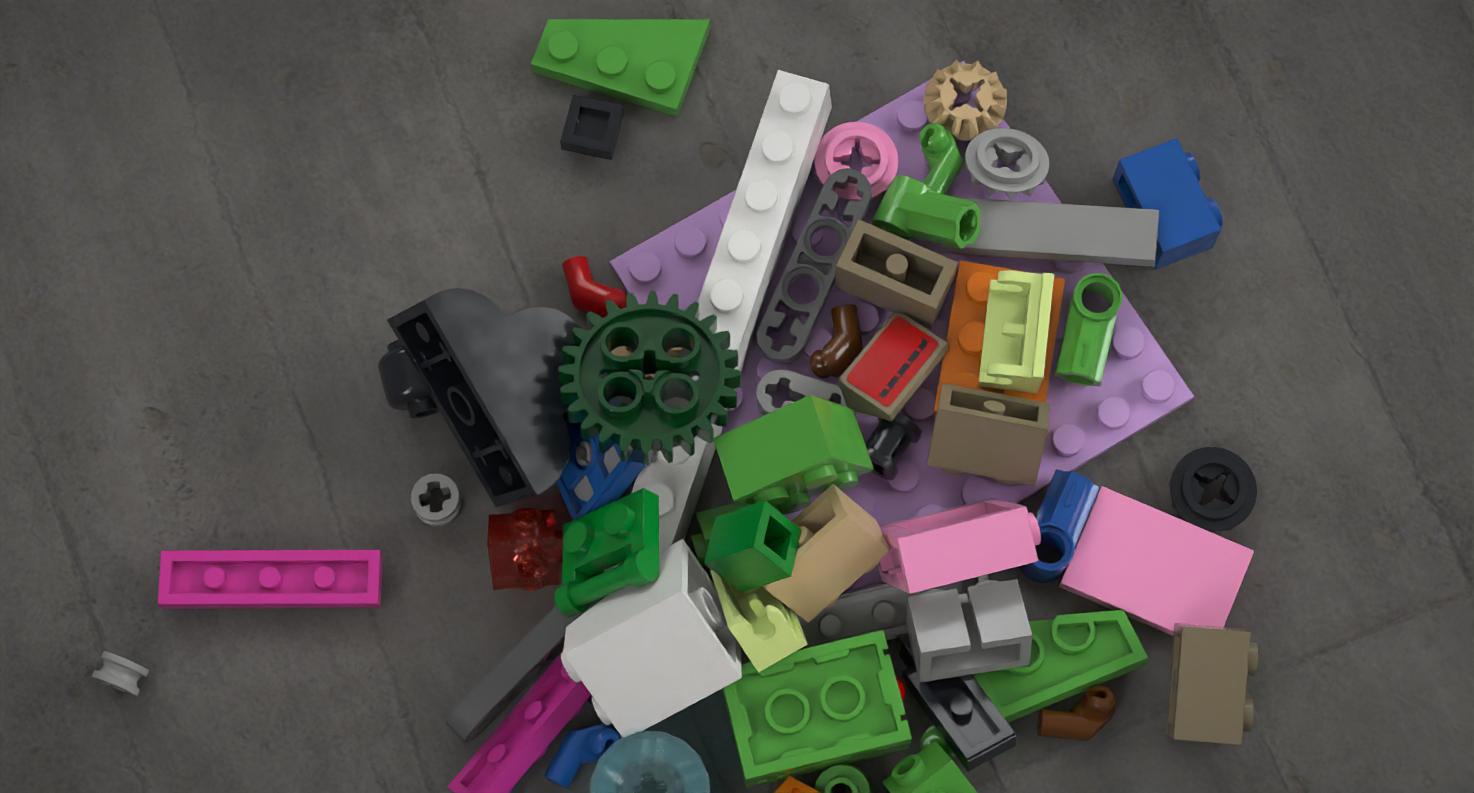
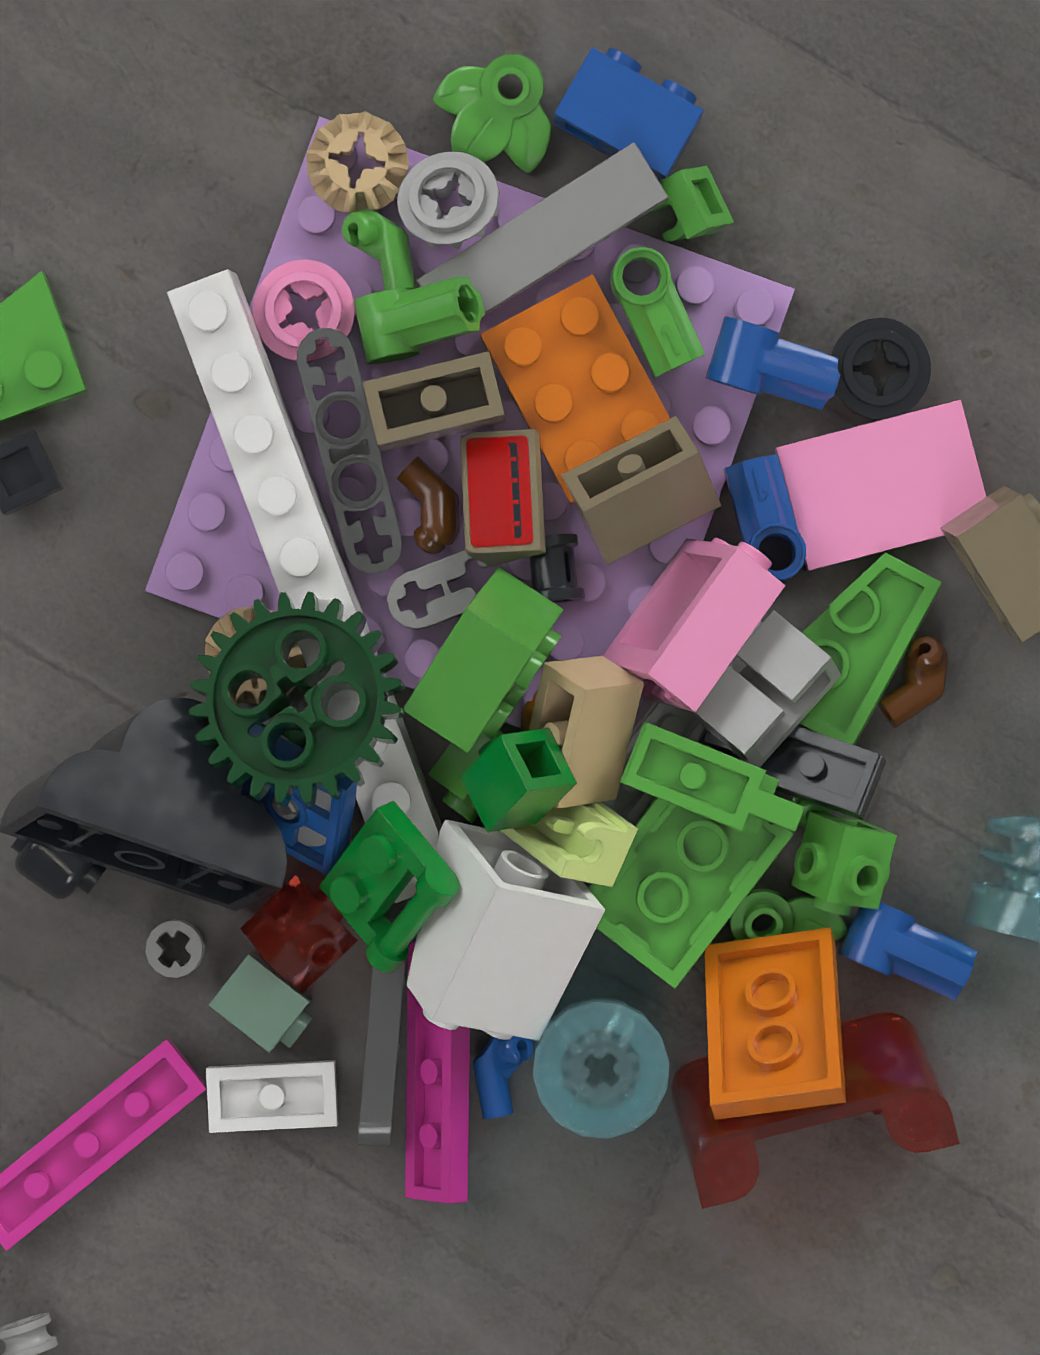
camera: 40 degrees left, 15 degrees up
(416, 645) = (272, 1096): none -> white plate
(462, 578) = (263, 1004): none -> sand green brick
(586, 293) = (157, 640): red arm -> none
(880, 652) = (707, 782): none -> bright green hinge
(1016, 331) = (592, 371): yellowish green hinge -> none
(1074, 144) = (489, 119): none -> bright green plate
(1132, 413) = (759, 361): none -> blue piece
(1169, 289) = (695, 203): none -> bright green tile

